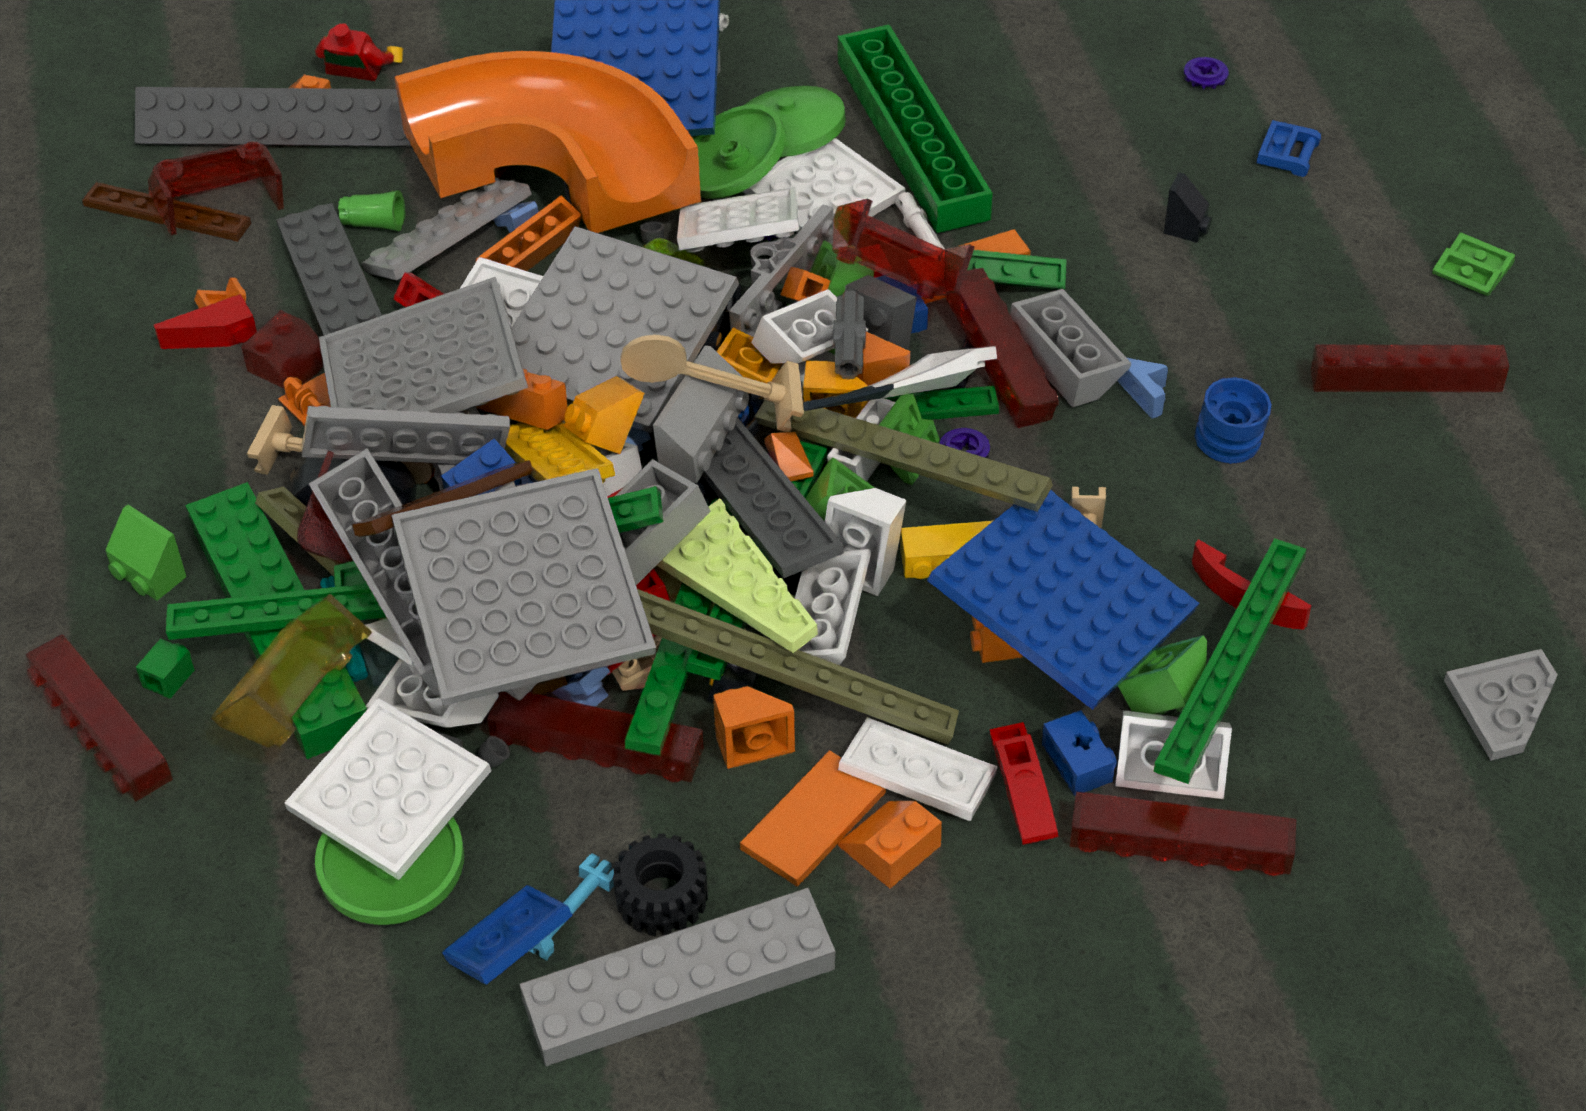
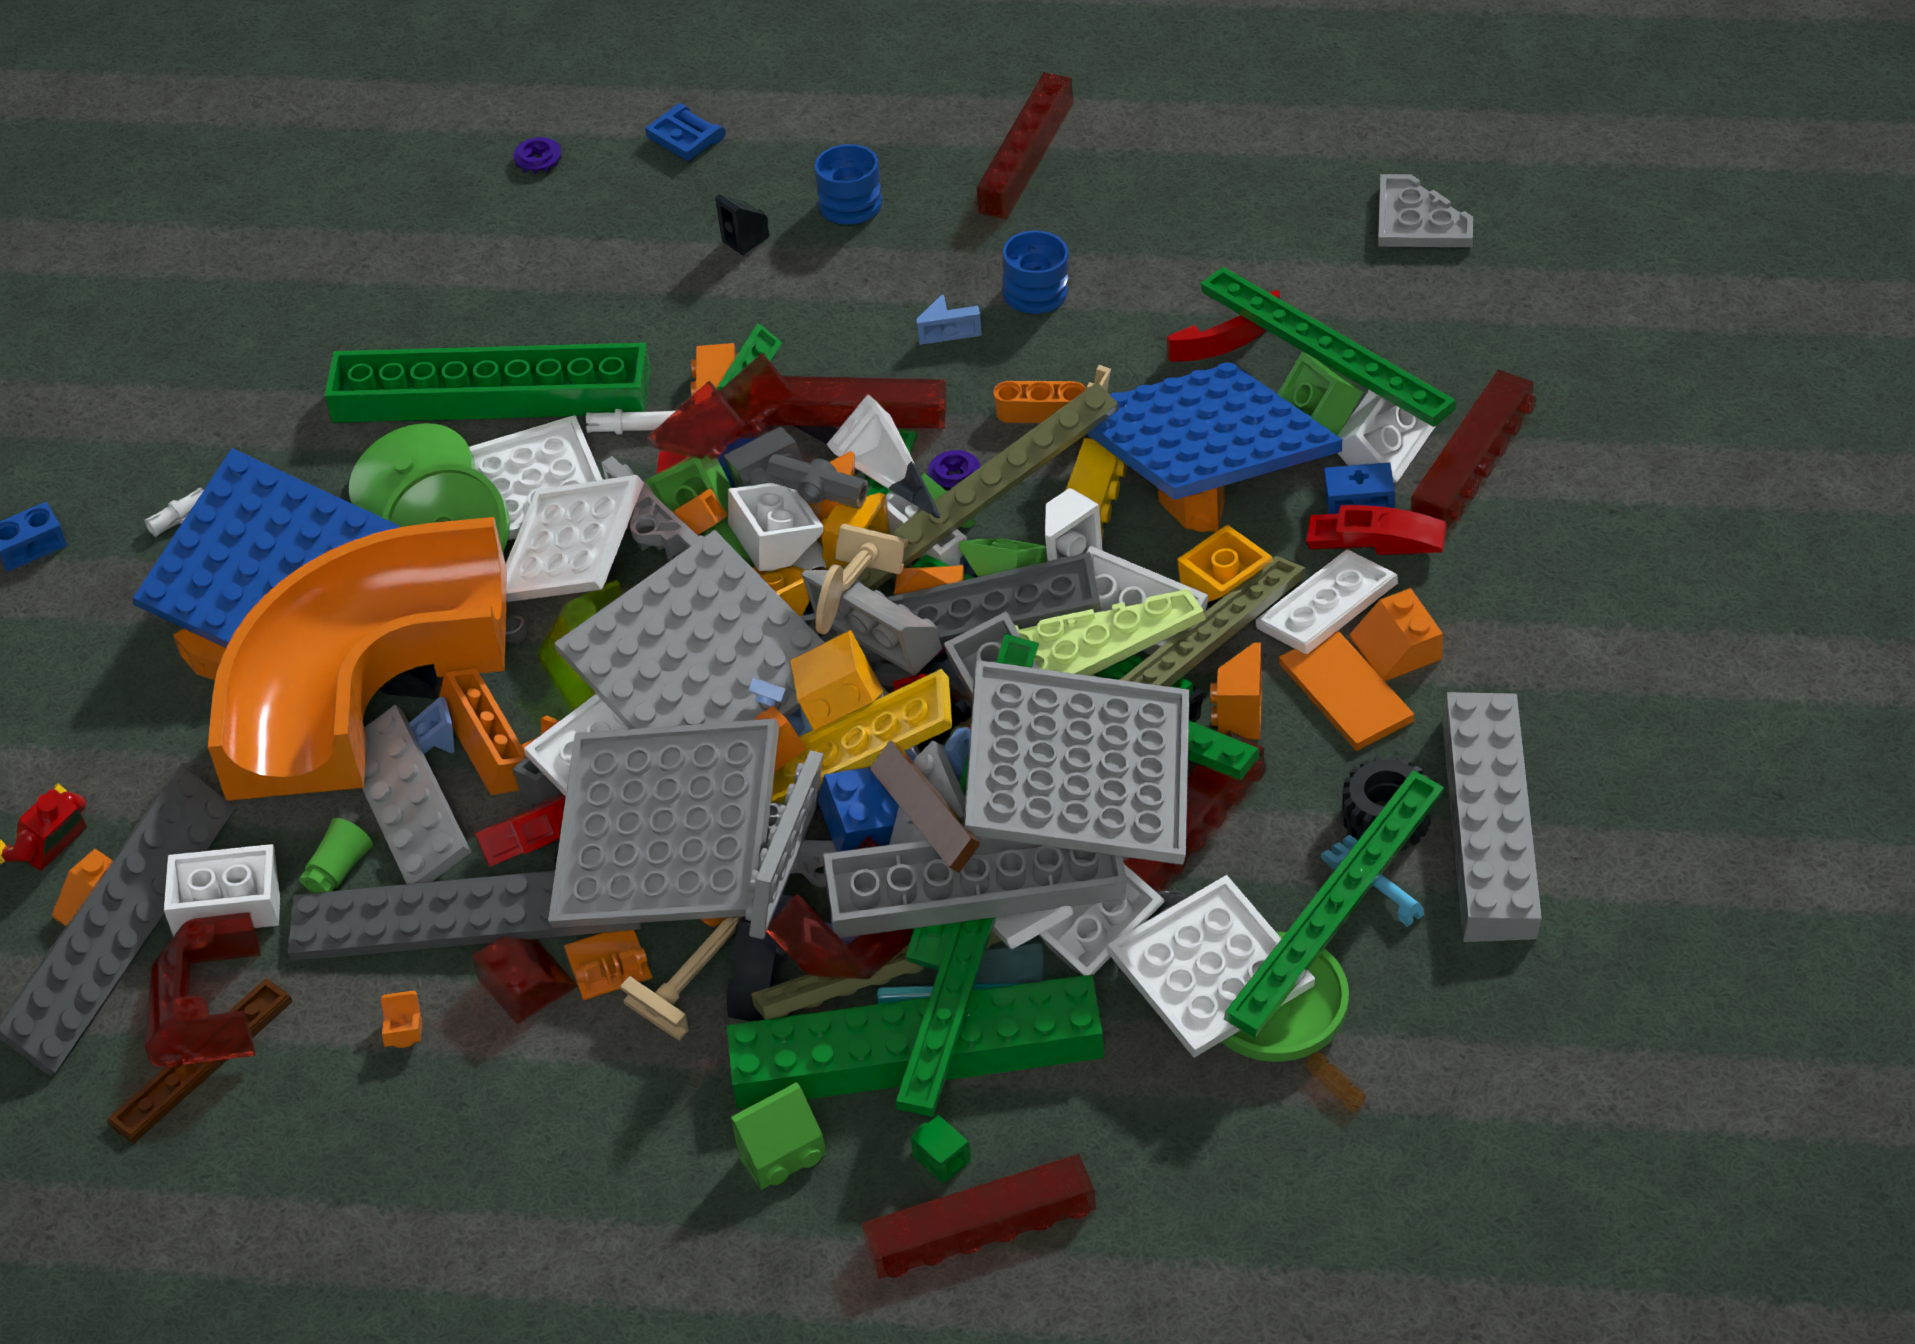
camera: 65 degrees left, 0 degrees up
(210, 326) = (441, 1033): red slope -> none
(289, 671) = (1030, 1025): clear yellow windscreen -> none
(315, 940) = (1335, 1081): none -> clear orange axle
(316, 159) = (223, 885): none -> white slope
(485, 858) = (1333, 904): none -> green plate
(507, 934) = (1398, 929): blue tile -> none
(579, 374) = (768, 693): none -> light blue plate
(914, 664) = (1221, 563): none -> light orange slope
(1069, 346) = (878, 350): light grey slope -> none
(1071, 468) = (1033, 399): none -> orange beam
(1272, 261) = (848, 184): none -> blue wheel
(1474, 264) = (912, 65): bright green slope -> none

